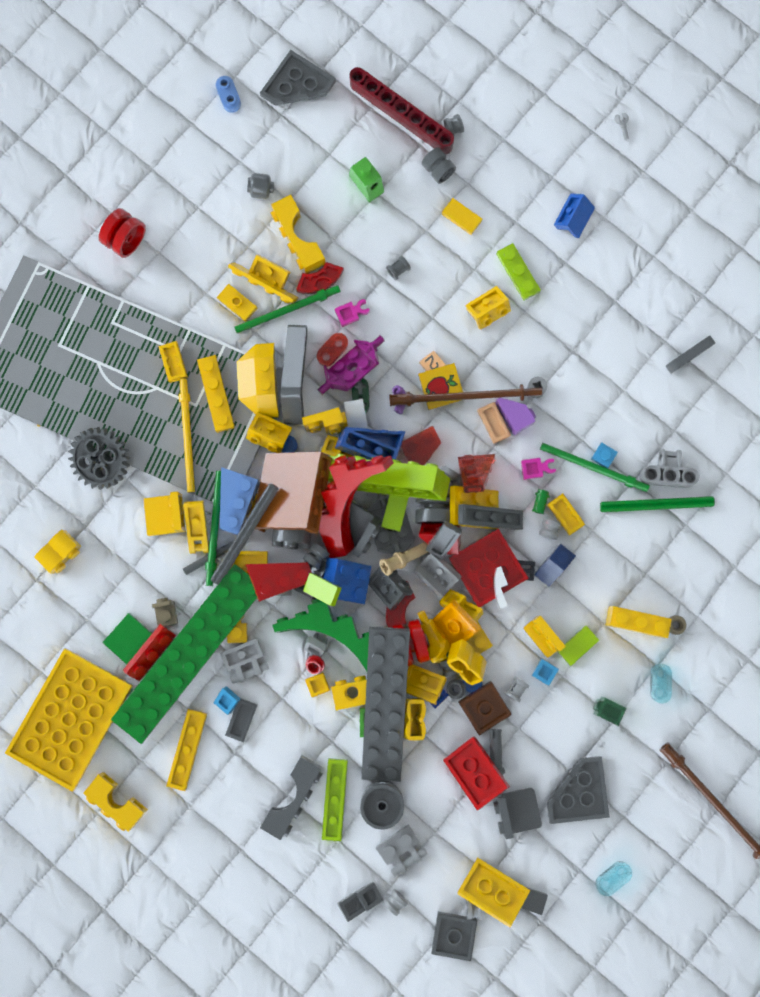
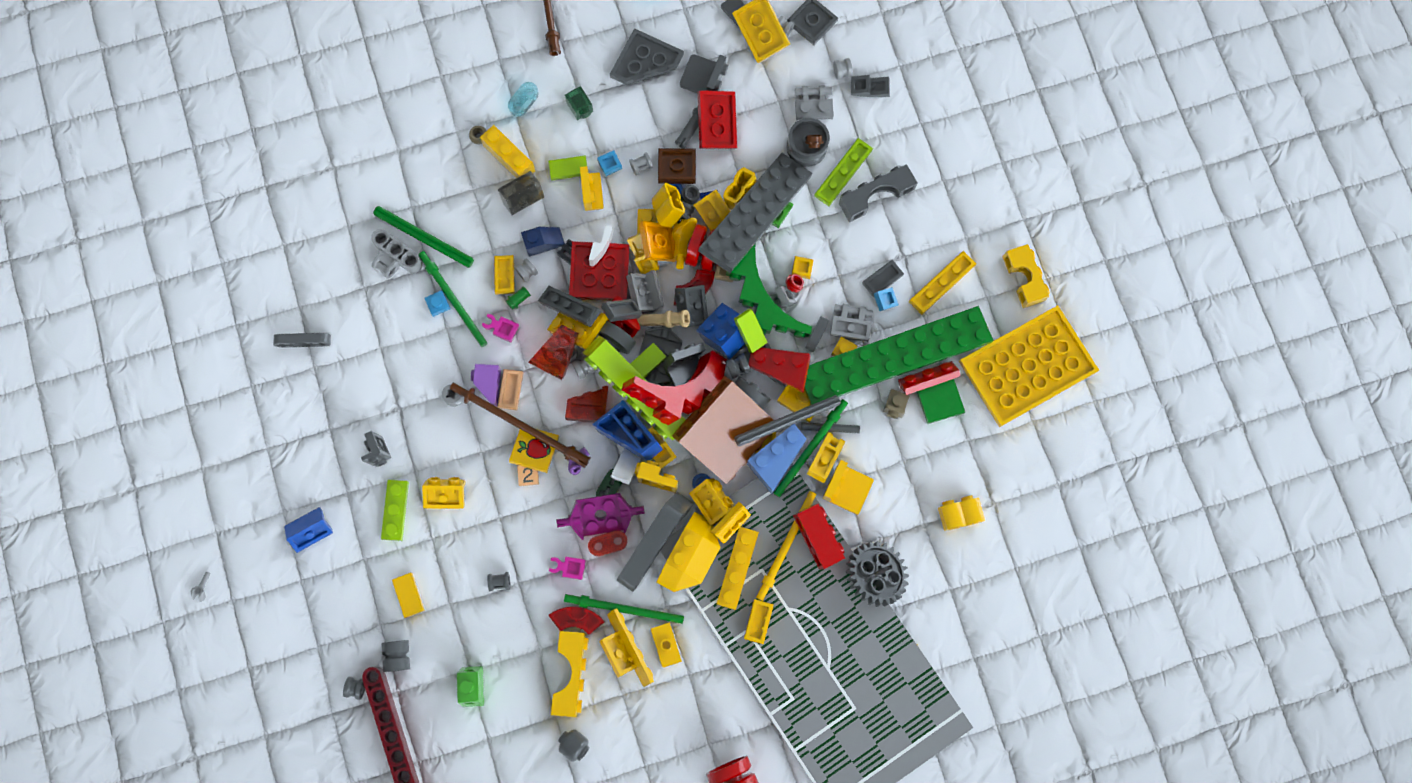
camera: 155 degrees left, 5 degrees down
(162, 457) = (819, 536): none -> red brick
(241, 423) = (731, 522): none -> yellow plate
(268, 631) = (817, 334): none -> dark grey beam
(341, 697) = (788, 239): yellow brick -> none
(374, 805) = (814, 141): none -> reddish brown plate
(565, 305) = (378, 448): none -> dark grey bracket
(601, 592) = (521, 193): none -> clear smoke brick

